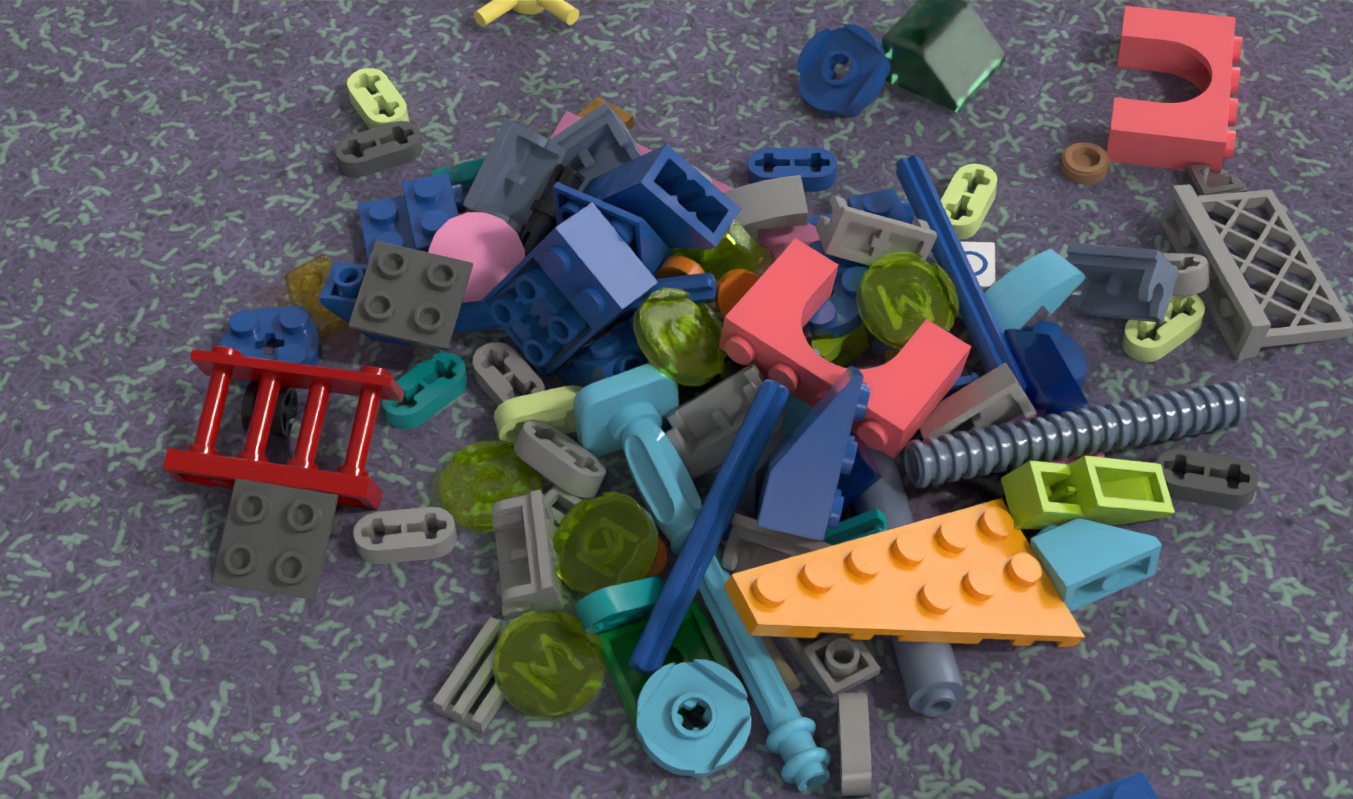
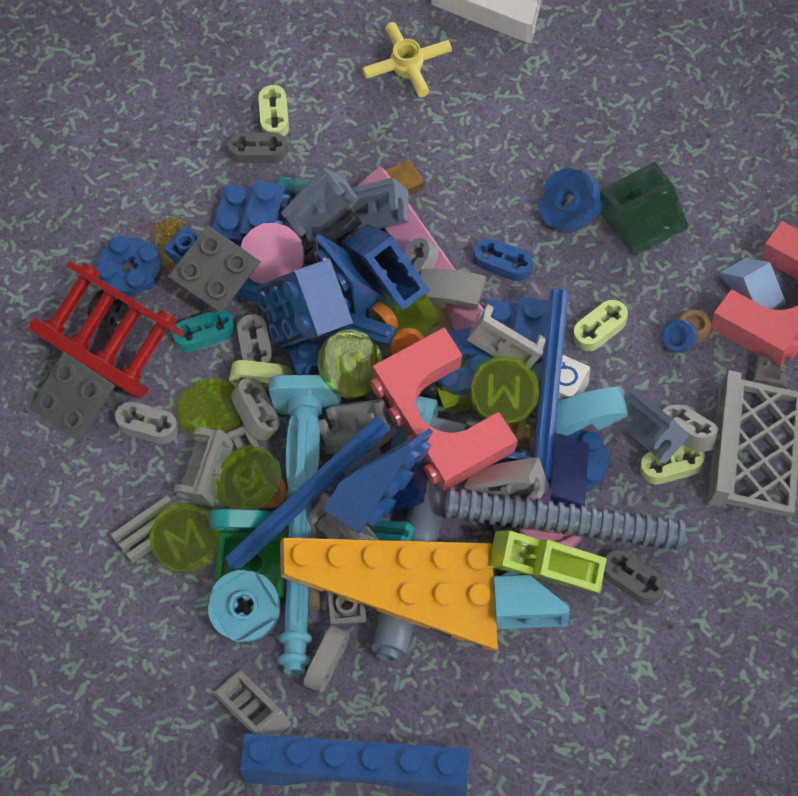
camera: 25 degrees right, 10 degrees up
(1077, 177) = (679, 336): none -> blue tile
(1127, 79) = (755, 281): none -> light blue slope

